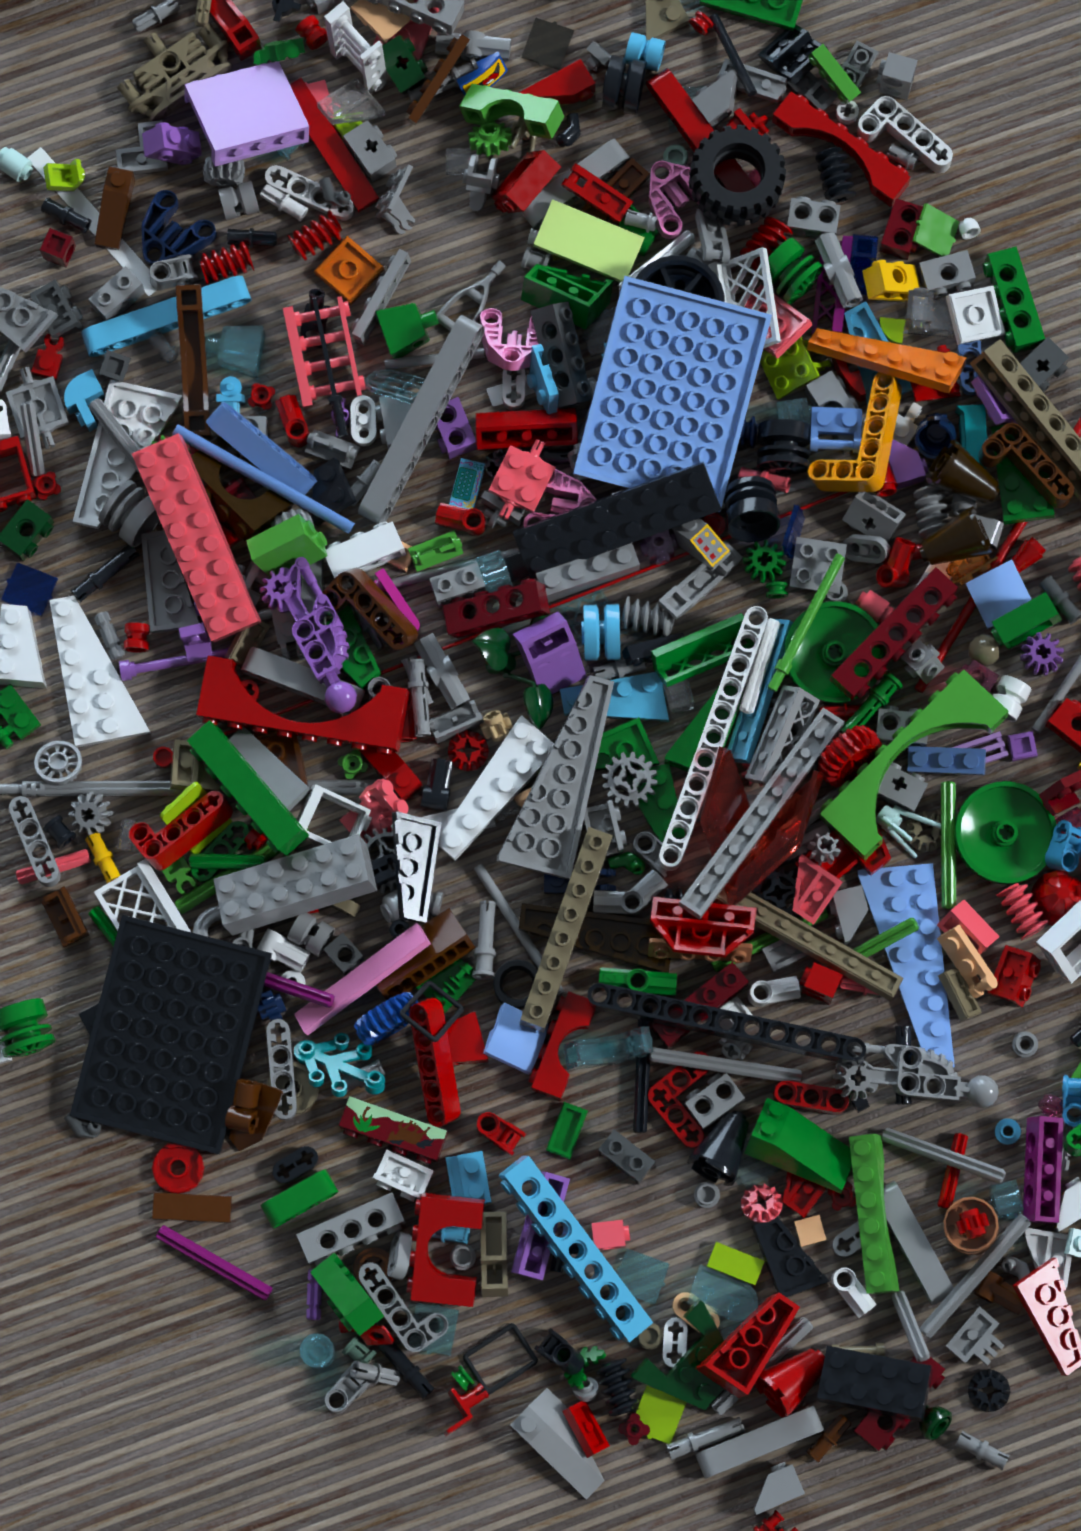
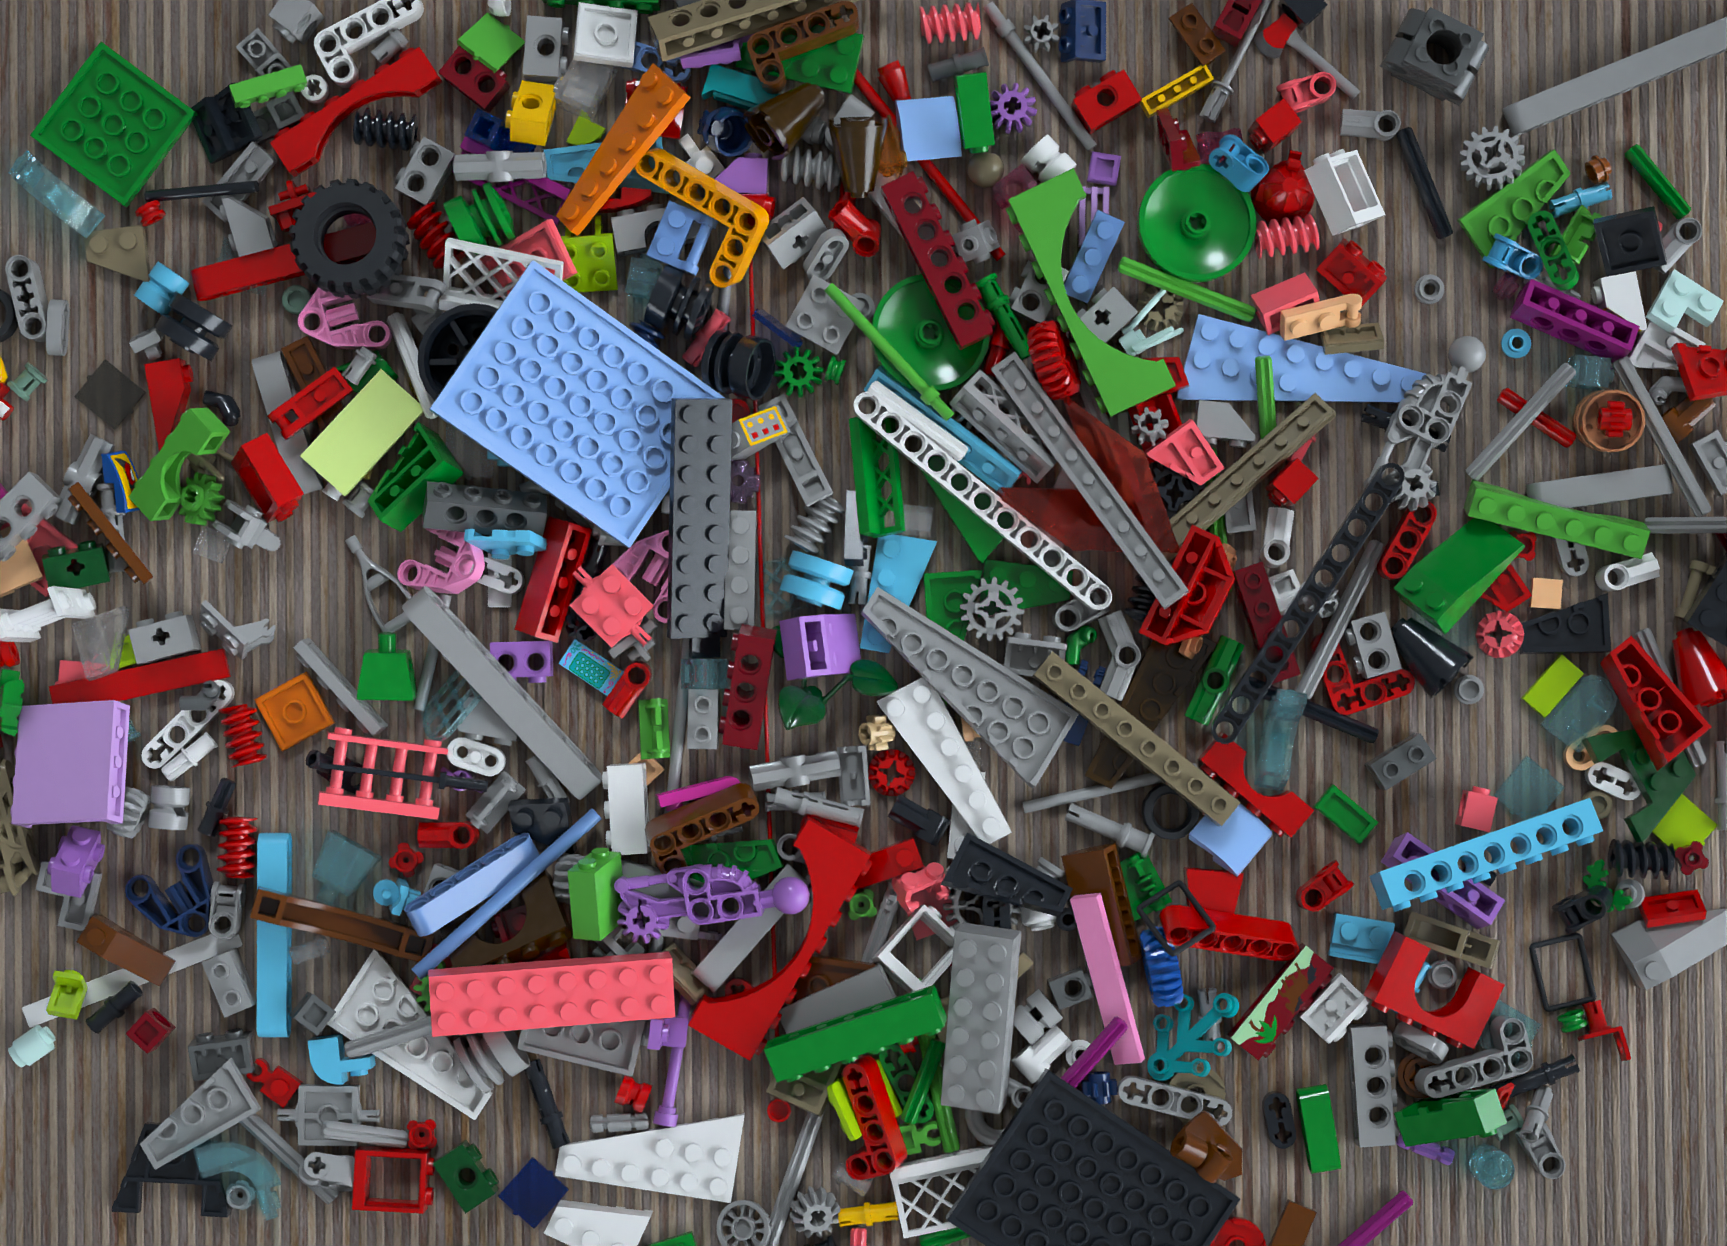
camera: 70 degrees left, 10 degrees up
(874, 605) = (893, 270): coral brick -> none

